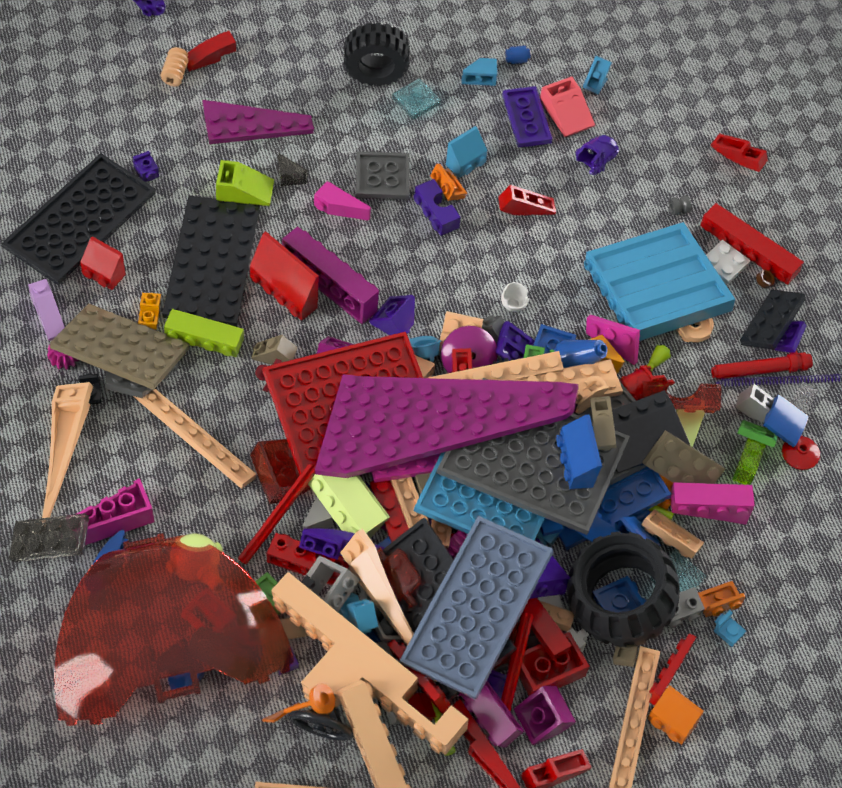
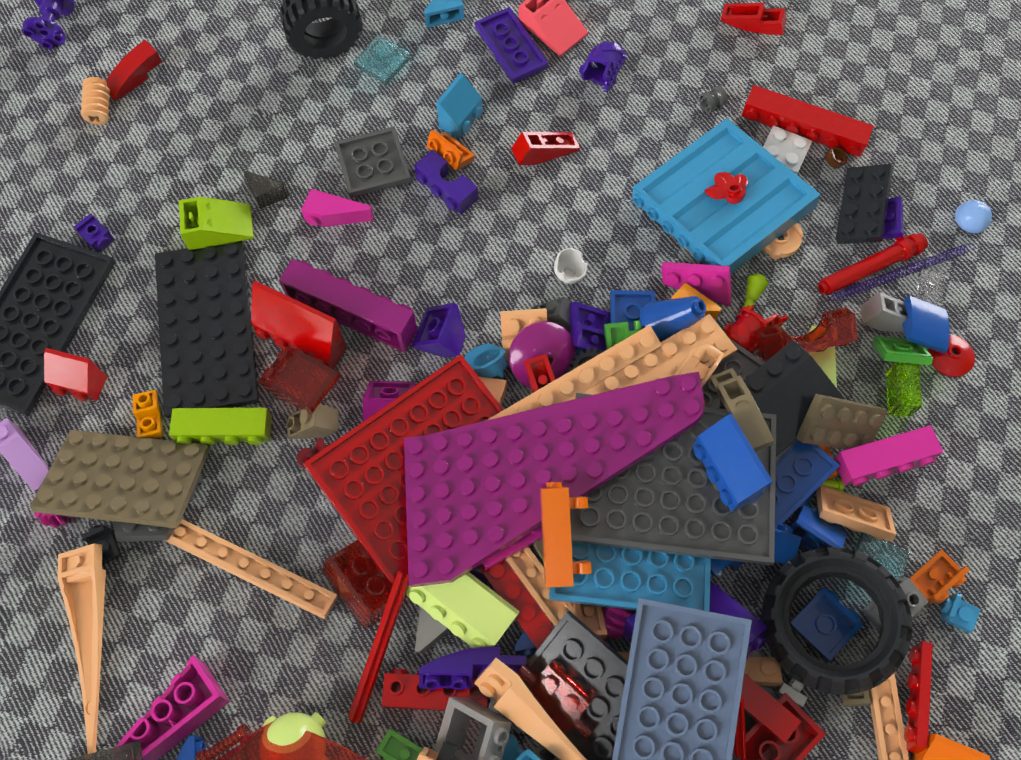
camera: 10 degrees left, 10 degrees up
(242, 123) = (190, 146): magenta wing -> none
(274, 315) = (299, 379): none -> clear red slope
(433, 462) = (557, 535): none -> orange brick
(662, 273) = (728, 187): none -> red plate

